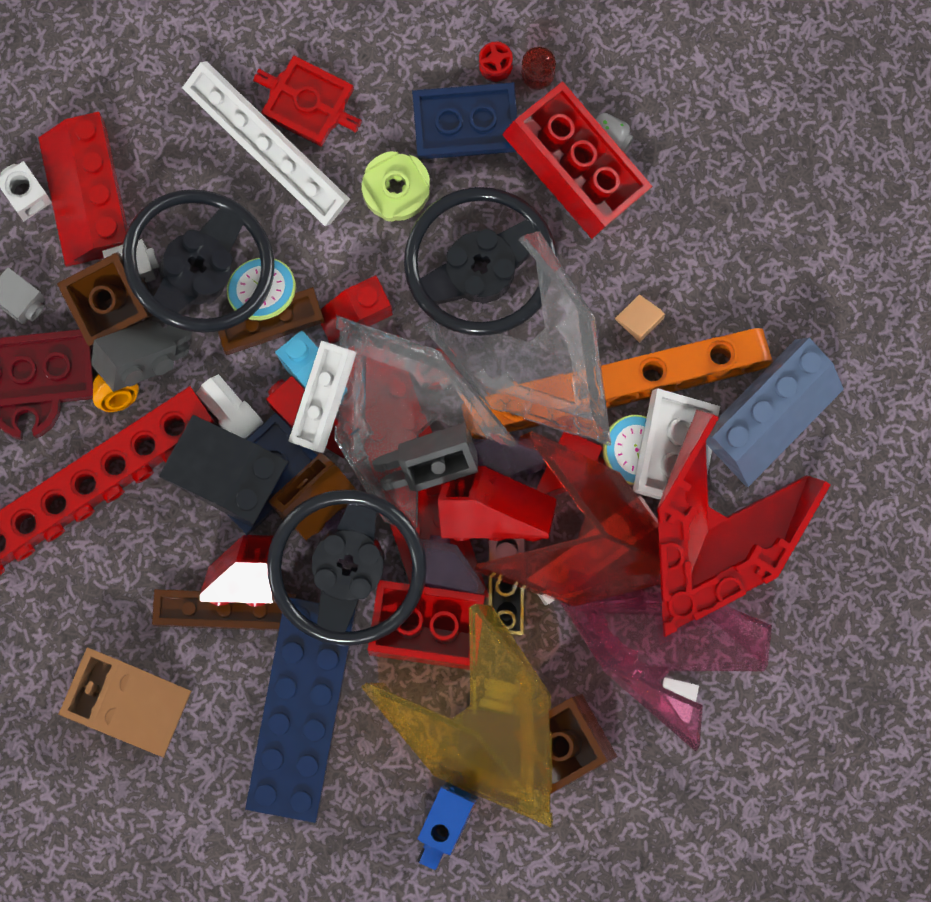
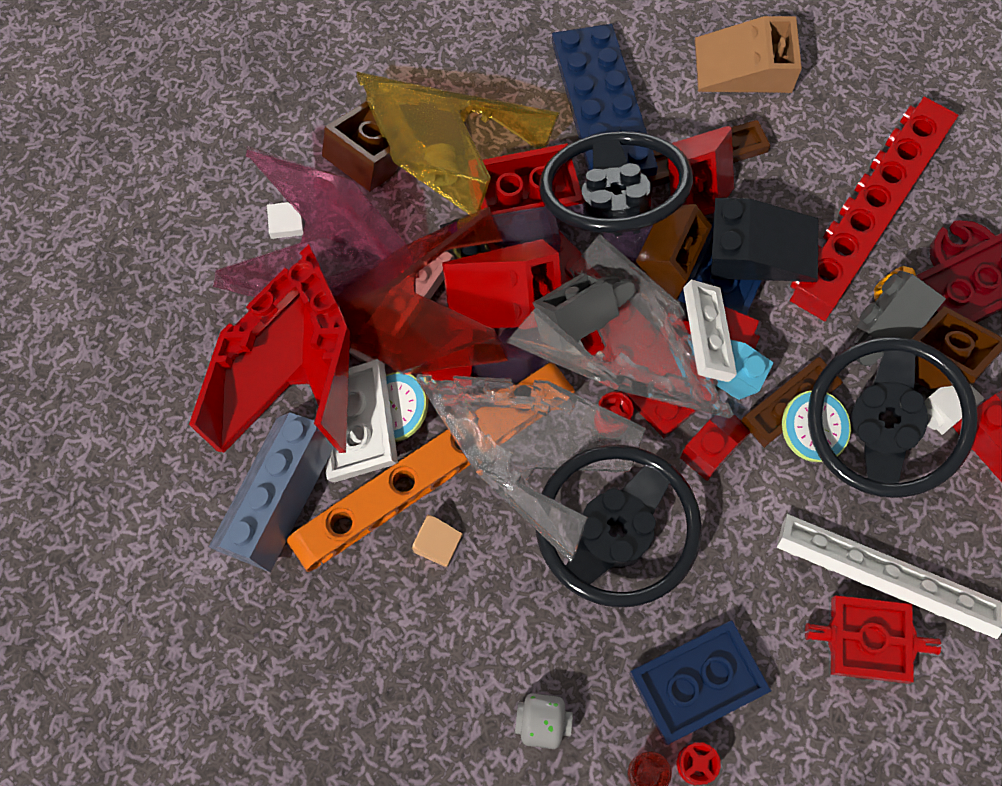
camera: 155 degrees right, 10 degrees down
(228, 408) = (778, 307): white piece -> none
(401, 168) = (758, 579): yellowish green plate -> none
(452, 810) = (445, 46): blue torso -> none
(576, 159) = (563, 674): red slope -> none

